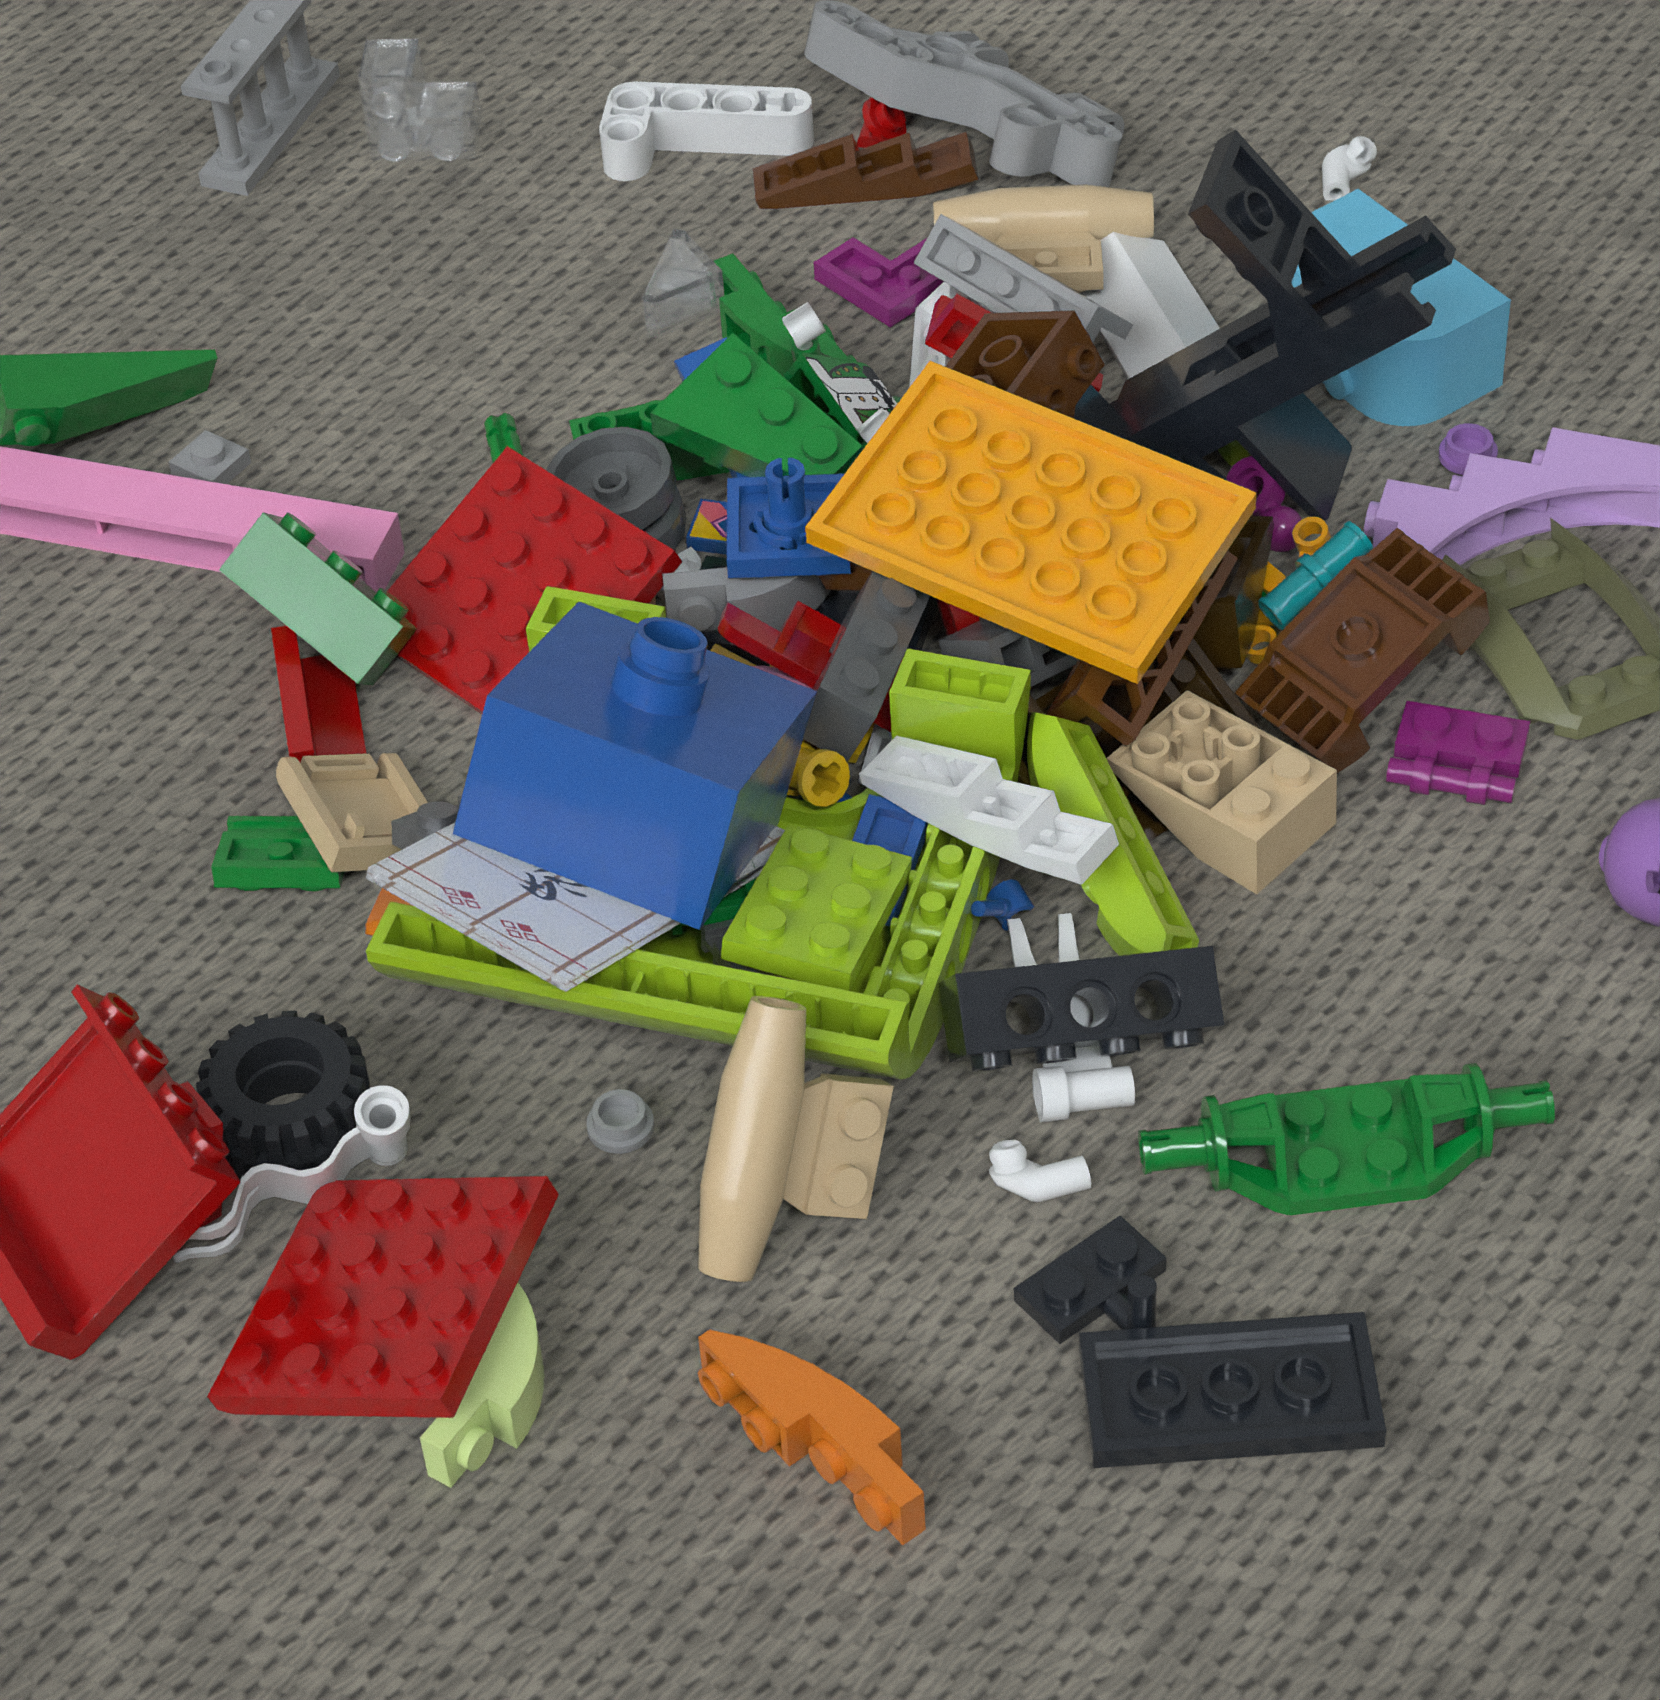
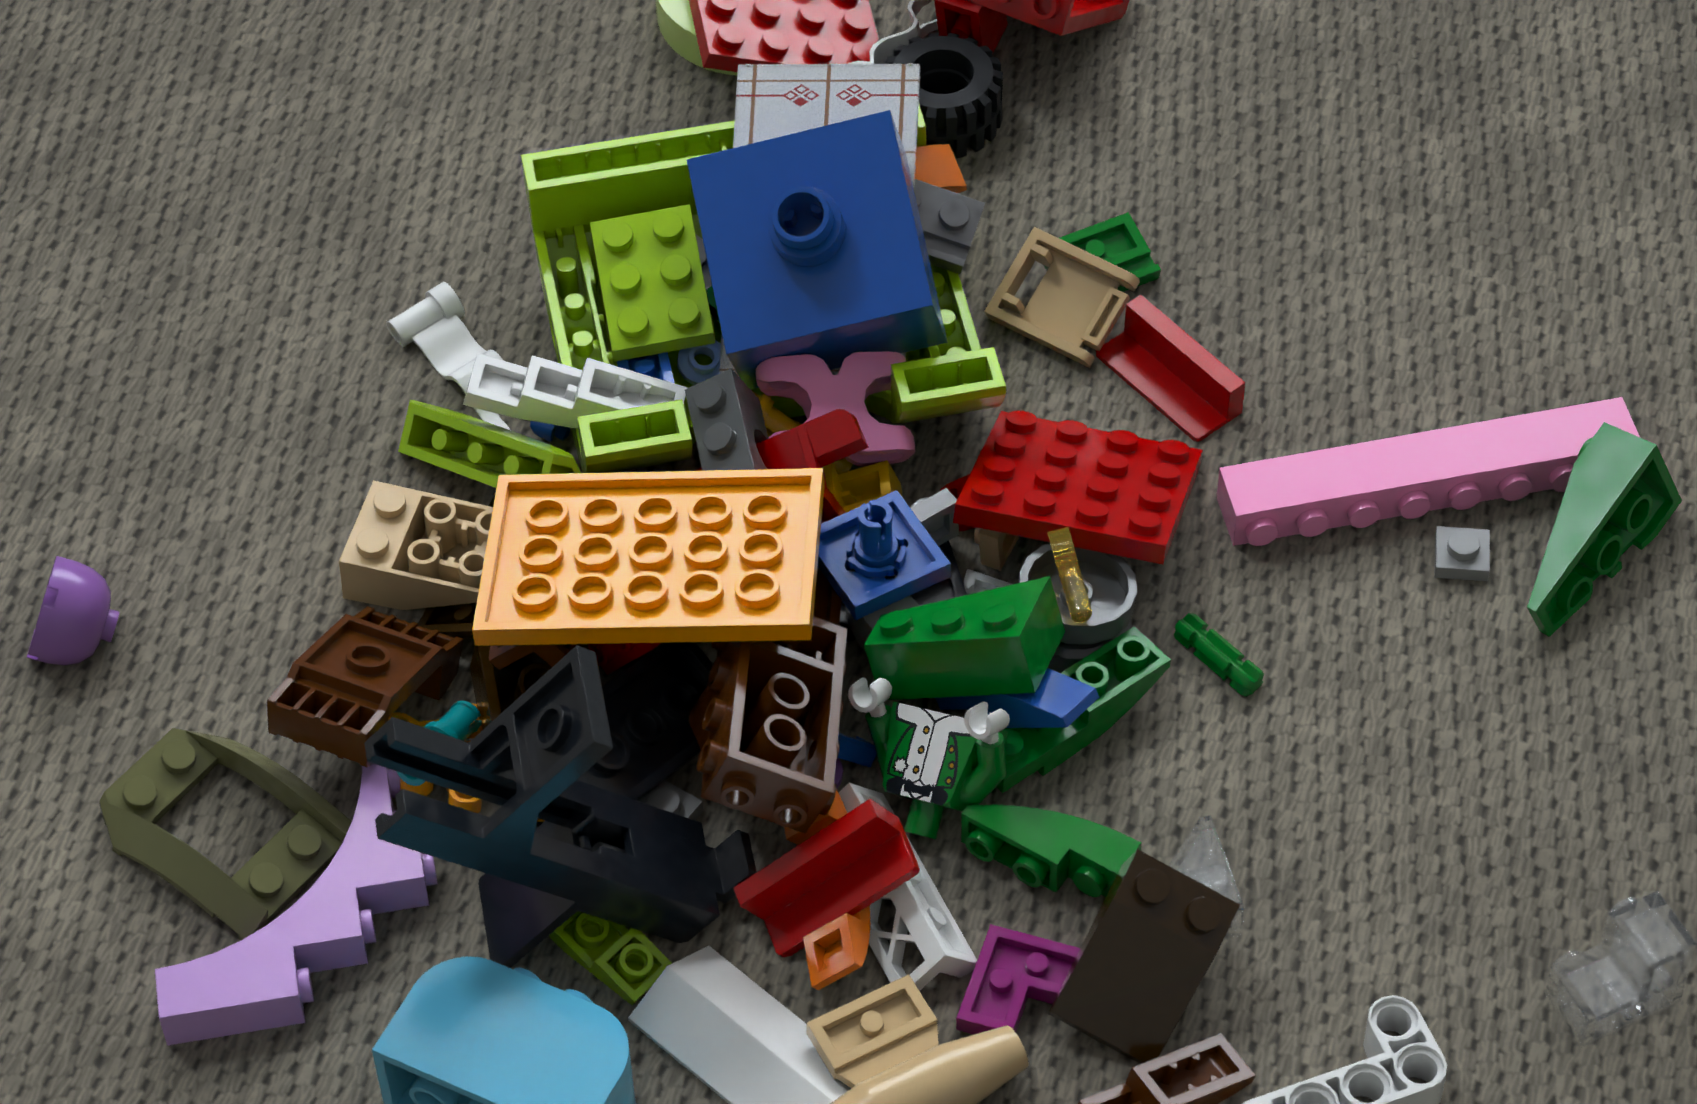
camera: 150 degrees right, 5 degrees up
(320, 596) = (1227, 403): wedge -> none
(612, 458) = (1070, 575): none -> clear yellow bar
(770, 222) = (1143, 957): none -> dark brown slope
(783, 1141) = (594, 118): tan plate -> none
(807, 1411) = (485, 62): orange slope -> none
(1005, 280) = (858, 913): light grey fence -> none
(1032, 1180) = (428, 253): white arm -> none
(1099, 1276) = (353, 213): black plate -> none
(1178, 979) = (442, 328): black brick -> none
(1231, 1390) = (234, 173): black plate -> none
(1348, 1141) = (229, 347): green plate -> none
(1458, 740) = (243, 699): magenta plate -> none
(1462, 441) = (378, 994): medium lavender plate -> none

